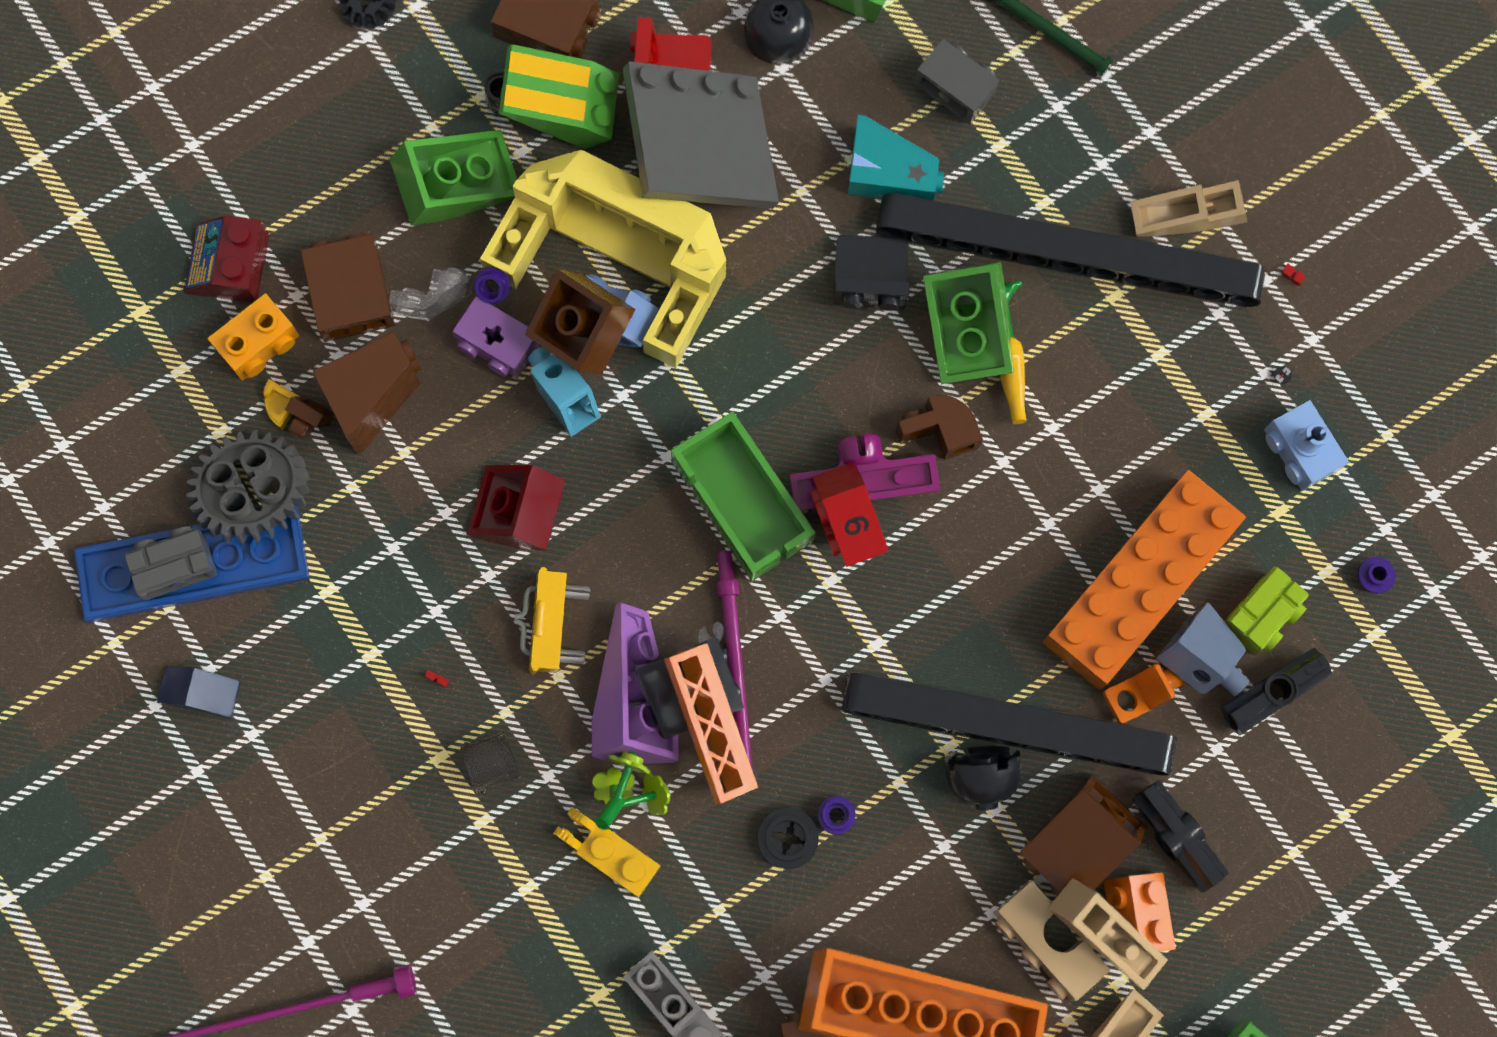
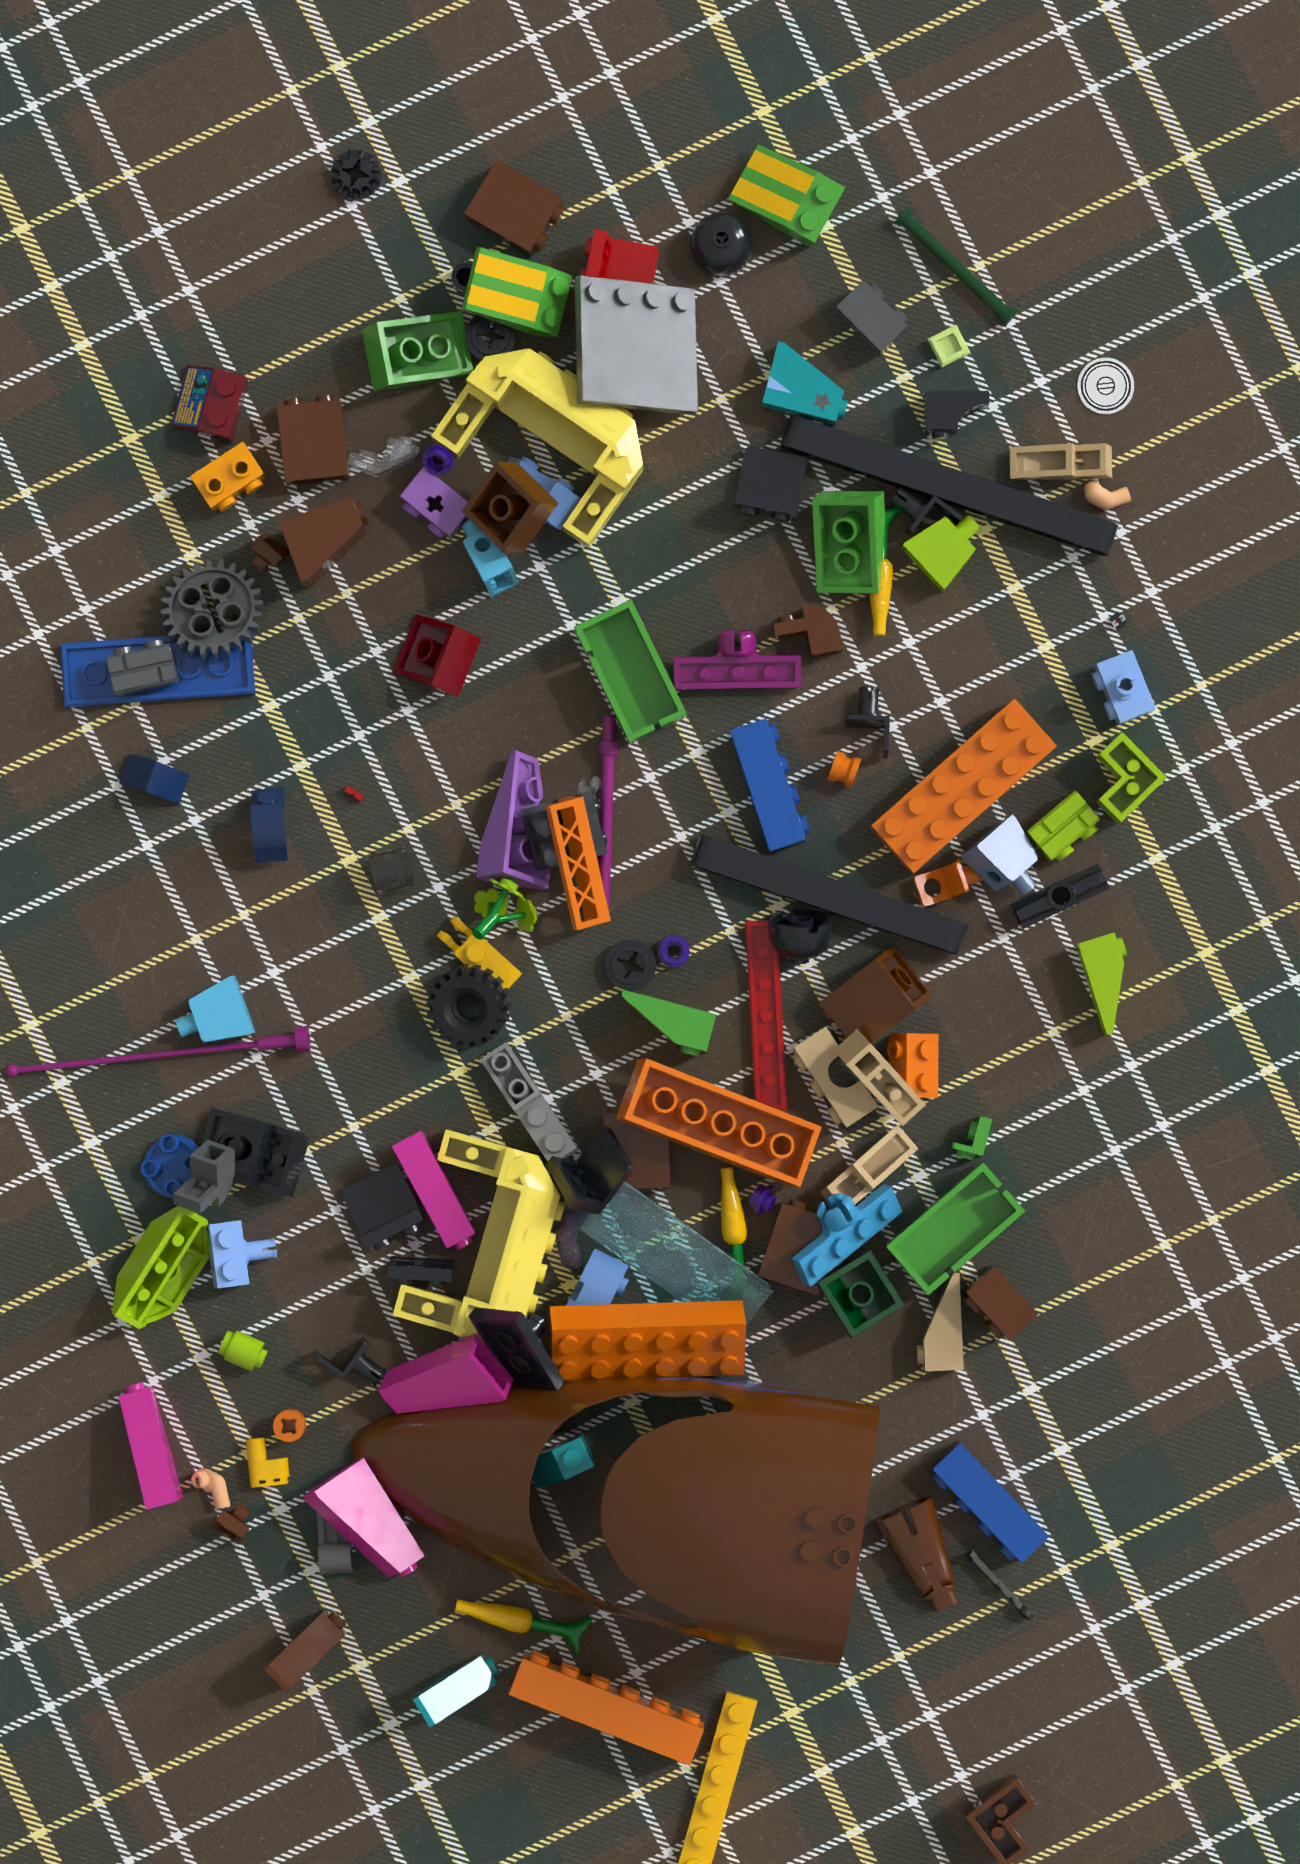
camera: 15 degrees right, 10 degrees up
(275, 402) = (243, 536): yellow tile -> none
(298, 963) = (217, 1013): none -> medium azure torso
(338, 728) = (269, 825): none -> dark blue brick
(522, 144) = (477, 346): none -> black gear
(548, 622) = (453, 757): yellow piece -> none
(586, 938) = (445, 1009): none -> black tyre
(848, 515) = (716, 701): red brick -> none
(856, 900) = (679, 1023): none -> bright green slope
(921, 609) = (768, 786): none -> blue brick
(956, 879) = (765, 1016): none -> red tile
(1003, 577) = (844, 769): none -> orange wheel
(1024, 517) = (869, 717): none -> black bracket
(1040, 280) = (917, 510): none -> black bracket
(1044, 105) = (948, 346): none -> yellowish green tile
(1054, 167) = (946, 409): none -> black arch
(1074, 320) = (942, 549): none -> lime torso
(1180, 836) = (957, 1006): black piece -> none
(1221, 128) = (1105, 385): none -> white sticker
(1233, 987) = (978, 1133): none -> bright green bracket
(1243, 244) = (1103, 498): none -> light nougat arm
(1293, 275) = (1143, 529): red piece -> none
(1338, 541) = (1135, 777): none -> lime brick
(1344, 776) = (1103, 971): none -> lime slope
(1367, 580) = (1156, 812): dark purple plate -> none

